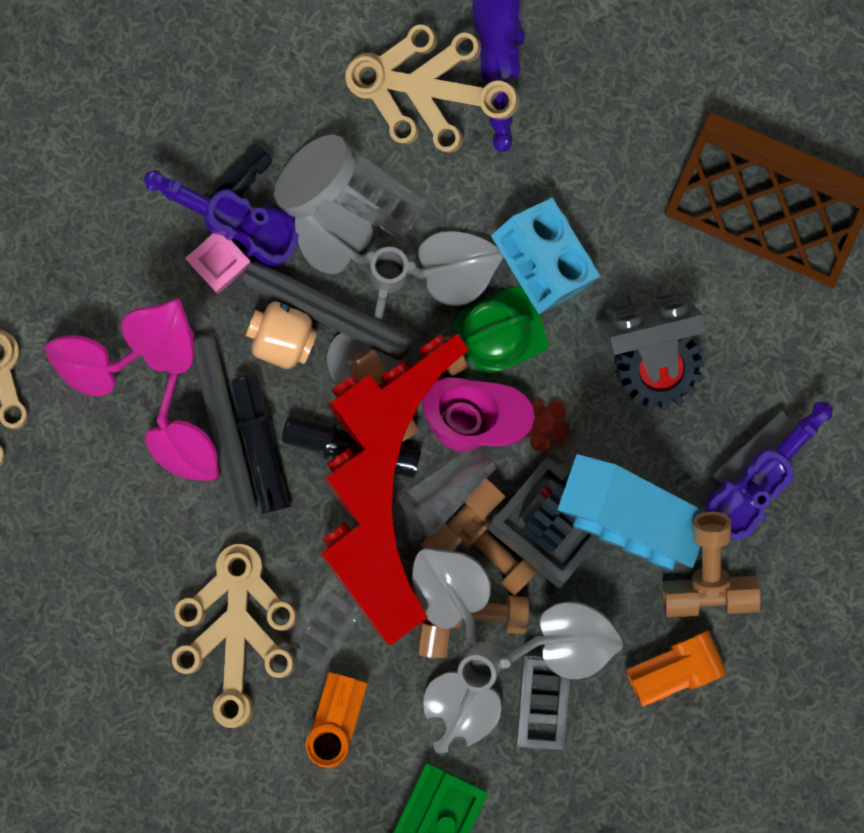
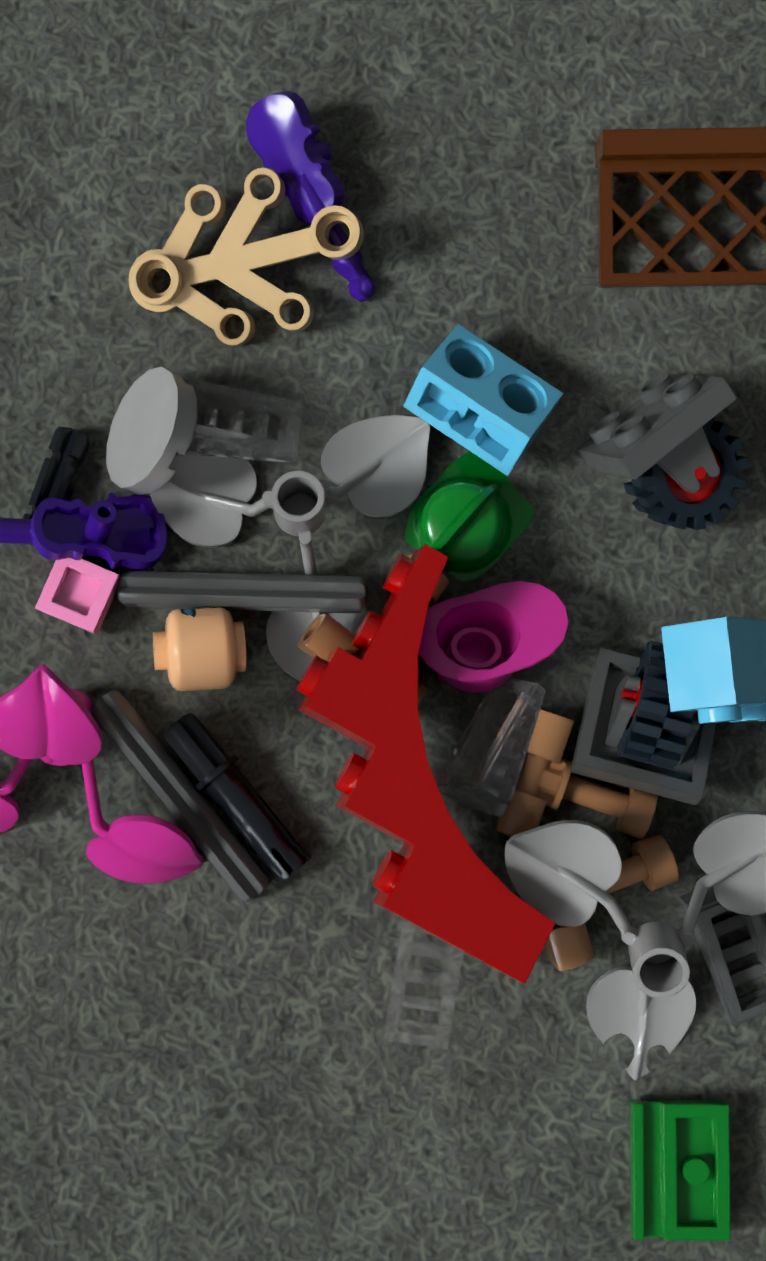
camera: 25 degrees left, 0 degrees up
(236, 627) = (313, 1041): tan plant -> none
(333, 441) = (330, 751): black axle -> none
(337, 715) = (493, 1098): orange piece -> none
(547, 424) = (581, 609): clear red plant -> none

